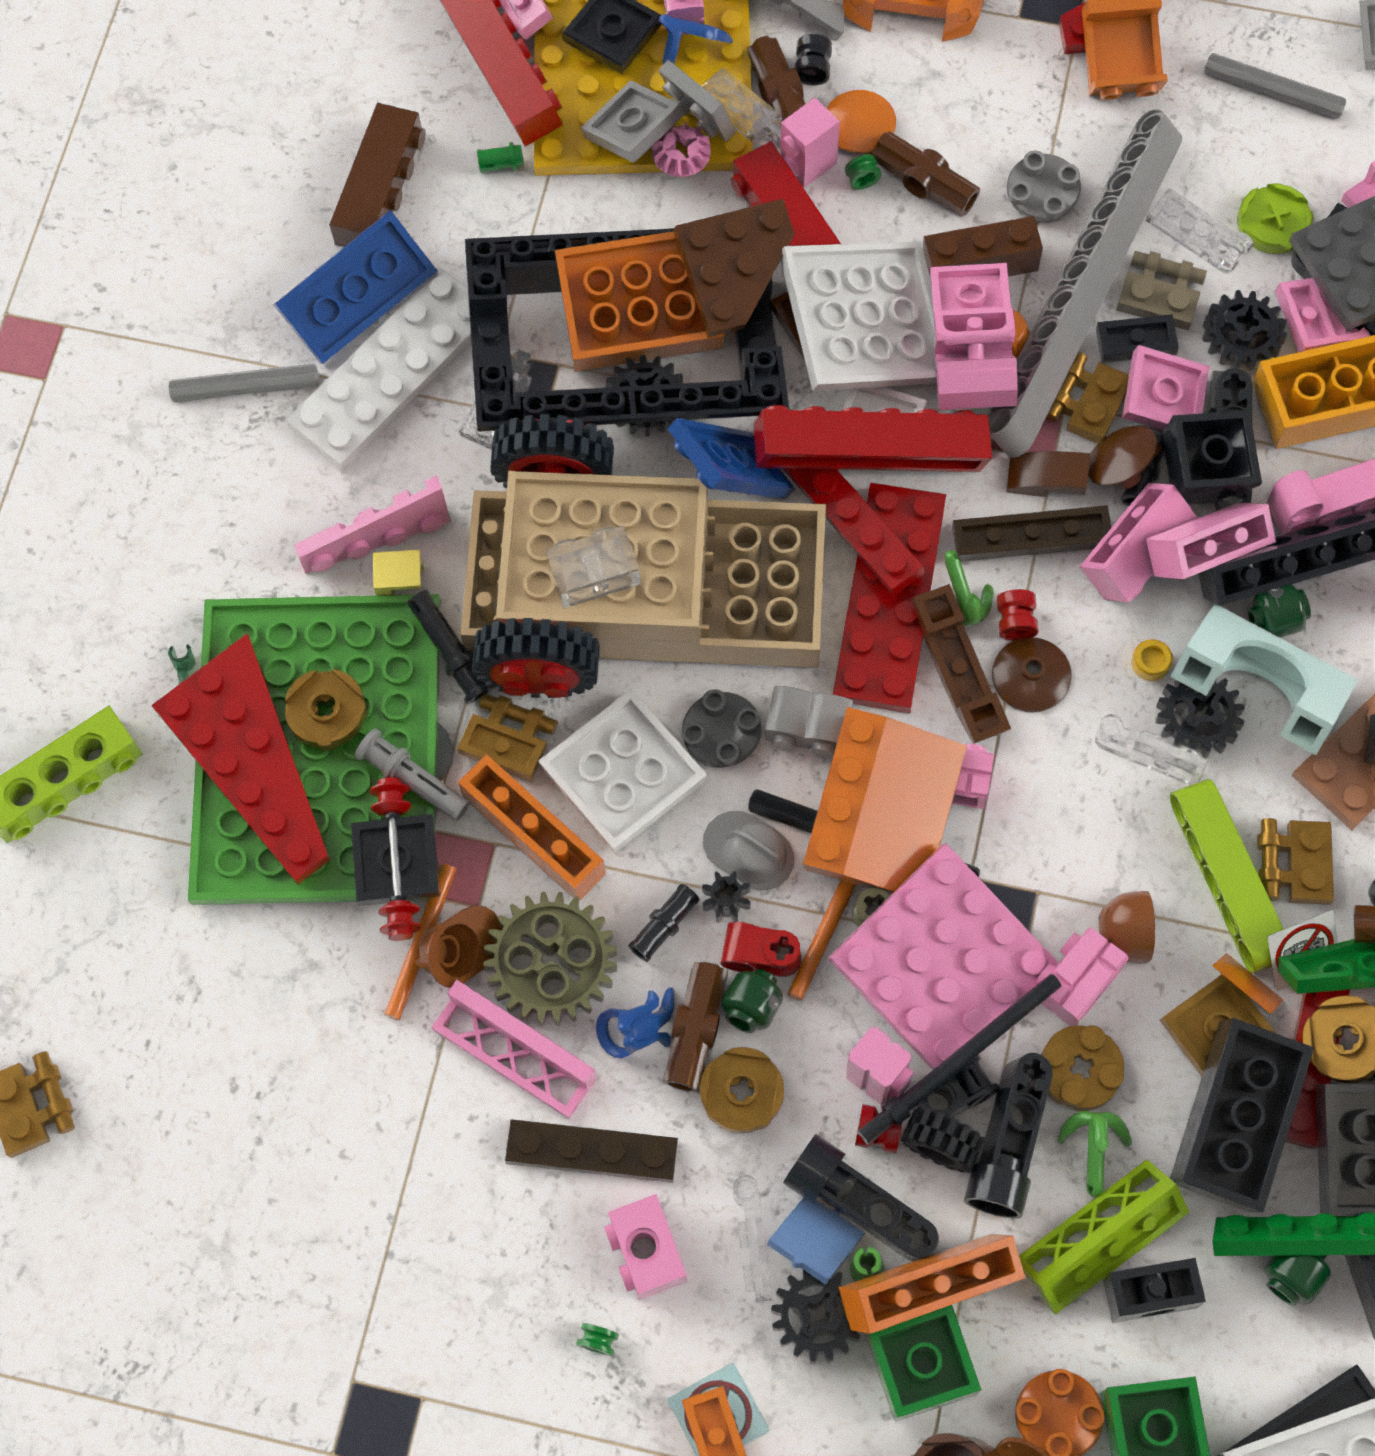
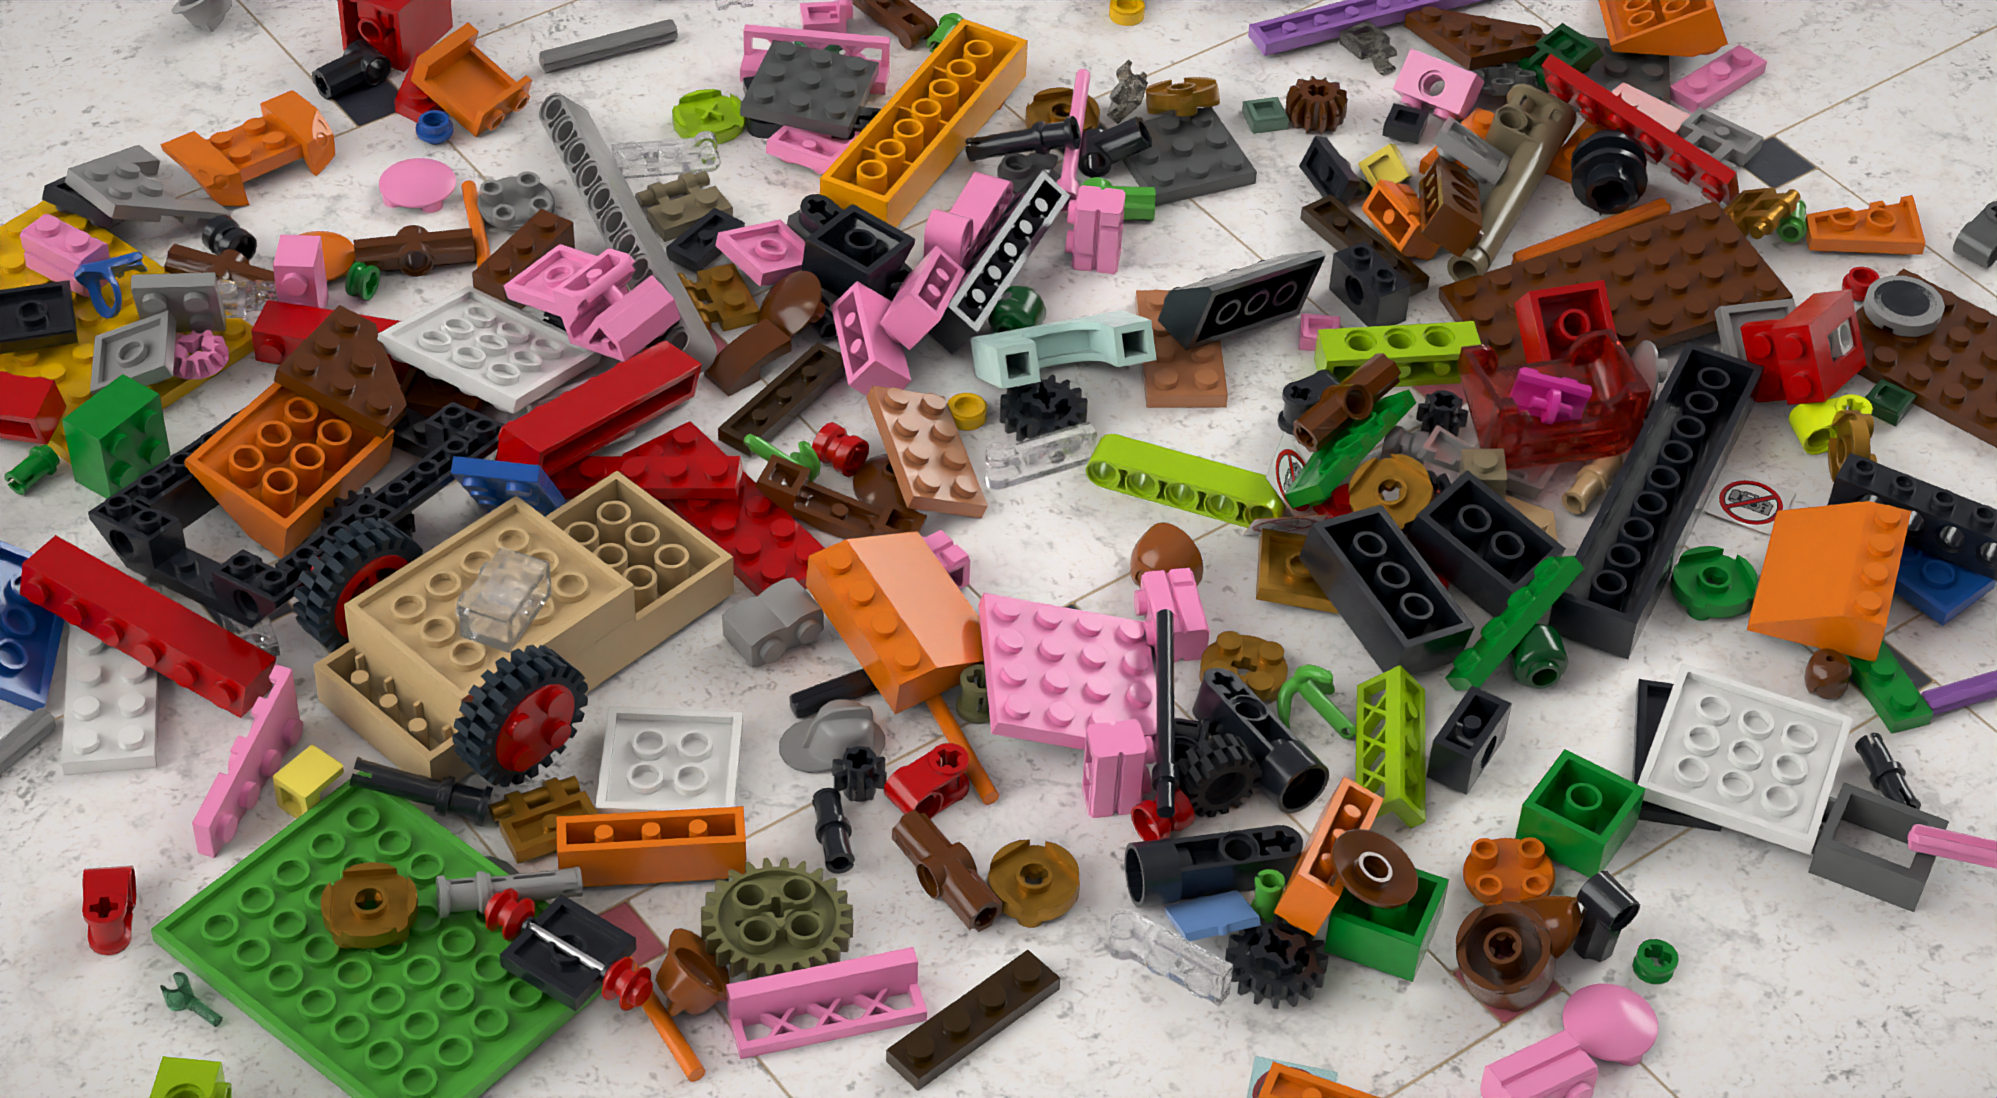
camera: 55 degrees left, 25 degrees down
(204, 555) = (108, 907): none -> red piece
(238, 740) = (312, 989): red wing -> none
(419, 362) = (147, 626): none -> red brick
(559, 182) = (116, 436): none -> green brick
(637, 1025) = (910, 892): blue piece -> none
(647, 1221) = (1101, 1031): bright pink brick -> none
(721, 729) = (712, 679): dark grey dish -> none
(752, 1000) = (967, 816): dark green head -> none
(943, 1339) = (1374, 868): none -> reddish brown dish
(995, 186) = (475, 221): none -> orange bar
(997, 109) = (417, 184): none -> bright pink dish
(1062, 57) = (434, 127): none -> blue plate
(1072, 673) = (926, 452): none -> nougat plate
(1225, 331) = (775, 184): black gear -> none
(1308, 861) = (1219, 440): pearl gold plate -> none

